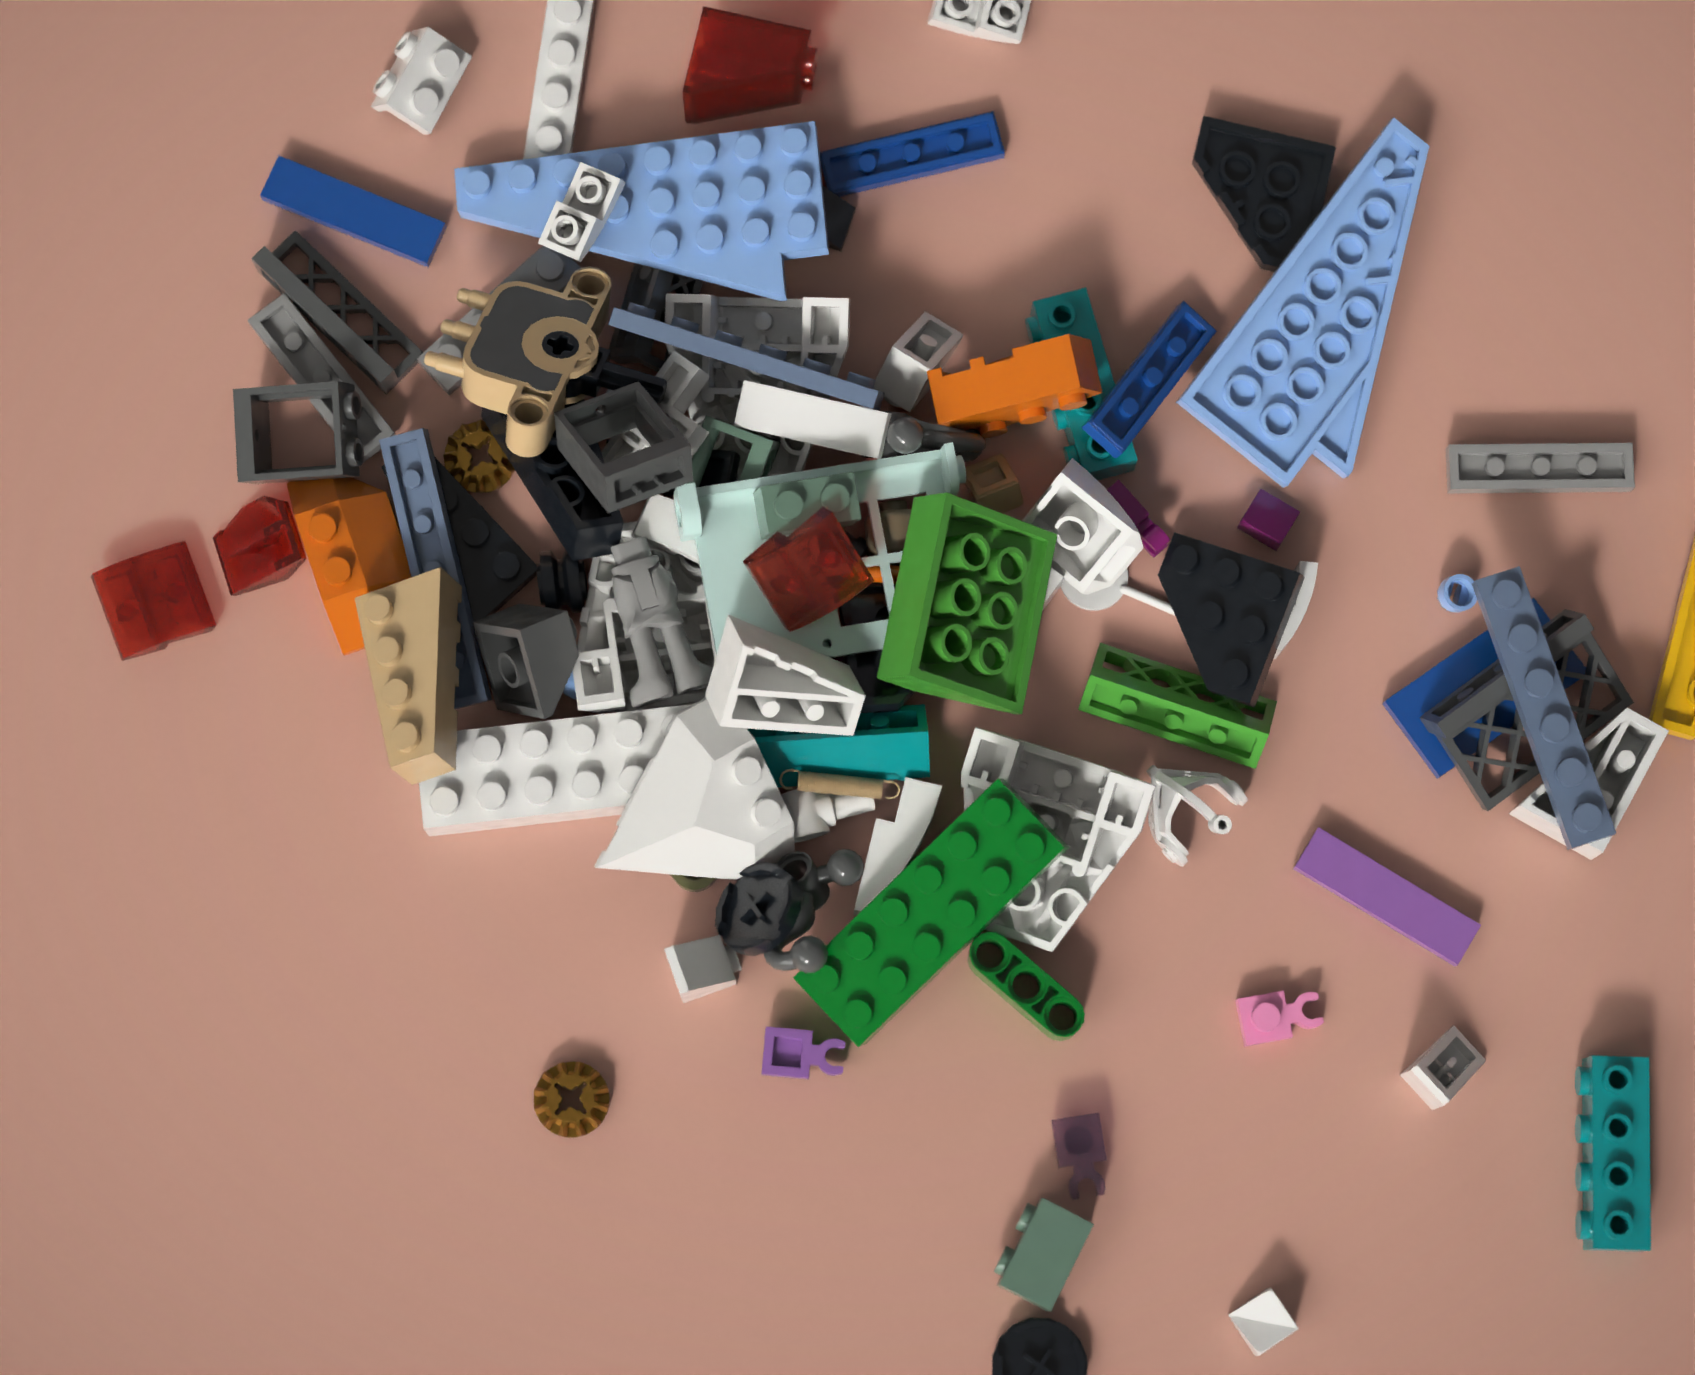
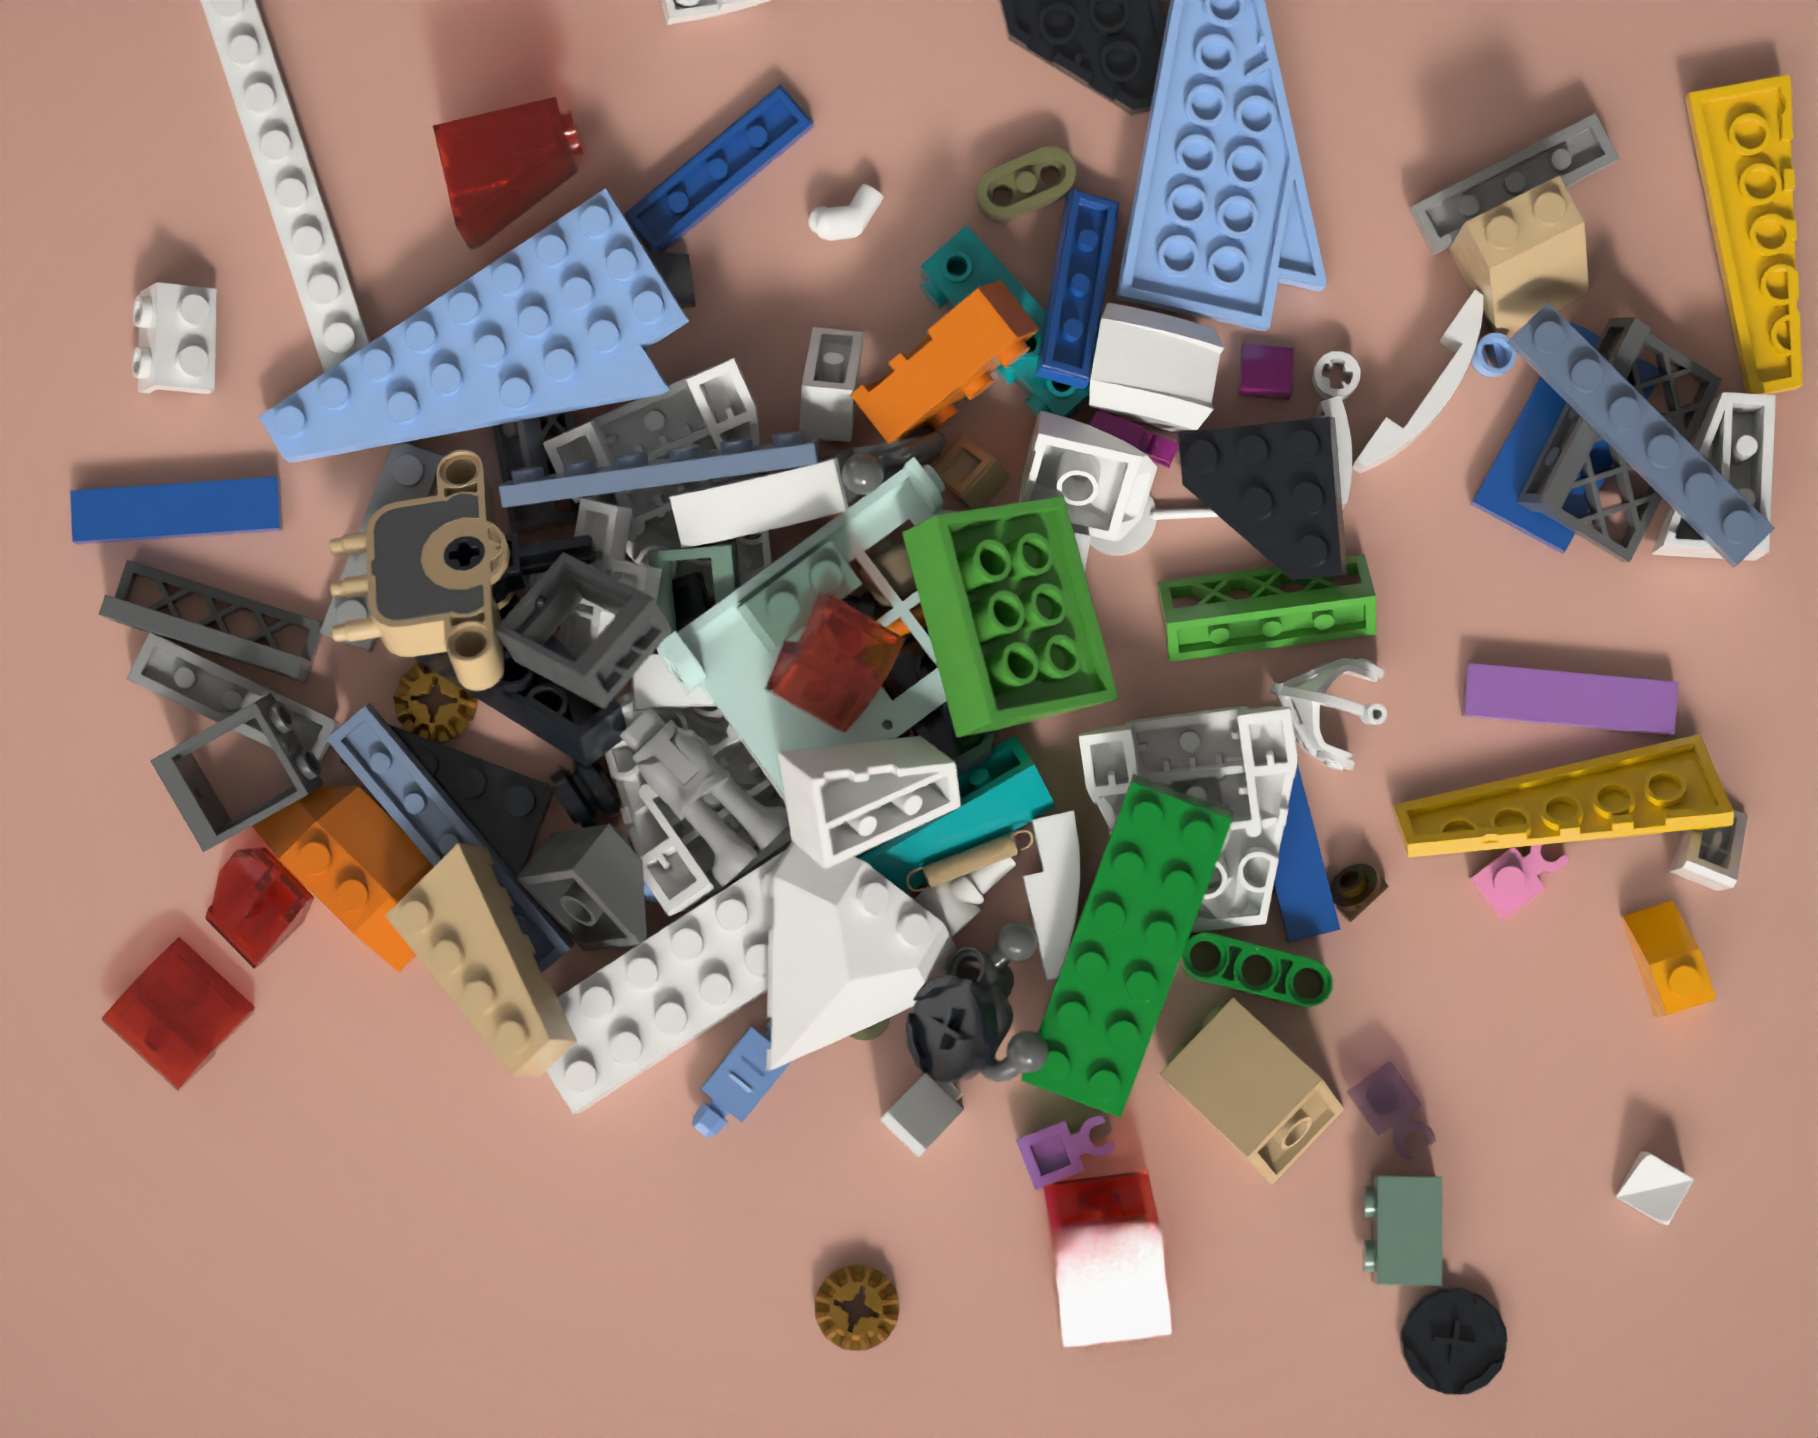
camera: 15 degrees left, 5 degrees up
(566, 872) = (737, 1083): none -> medium blue piece
(583, 214) = (416, 402): white slope -> none
(790, 1158) = (1107, 1259): none -> clear red slope
(975, 1081) = (1251, 1090): none -> tan slope
(992, 241) = (846, 221): none -> white arm
(1100, 926) = (1301, 875): none -> blue tile
(1139, 963) = (1356, 889): none -> dark brown plate
(1149, 279) = (1023, 181): none -> olive plate
(1179, 470) = (1154, 368): none -> white slope
(1337, 549) = (1349, 368): none -> white bush
(1343, 621) = (1461, 339): none -> white slope
(1364, 1143) = (1668, 959): none -> light orange slope
(1373, 985) = (1604, 797): none -> yellow wing
(1520, 521) = (1524, 256): none -> tan slope

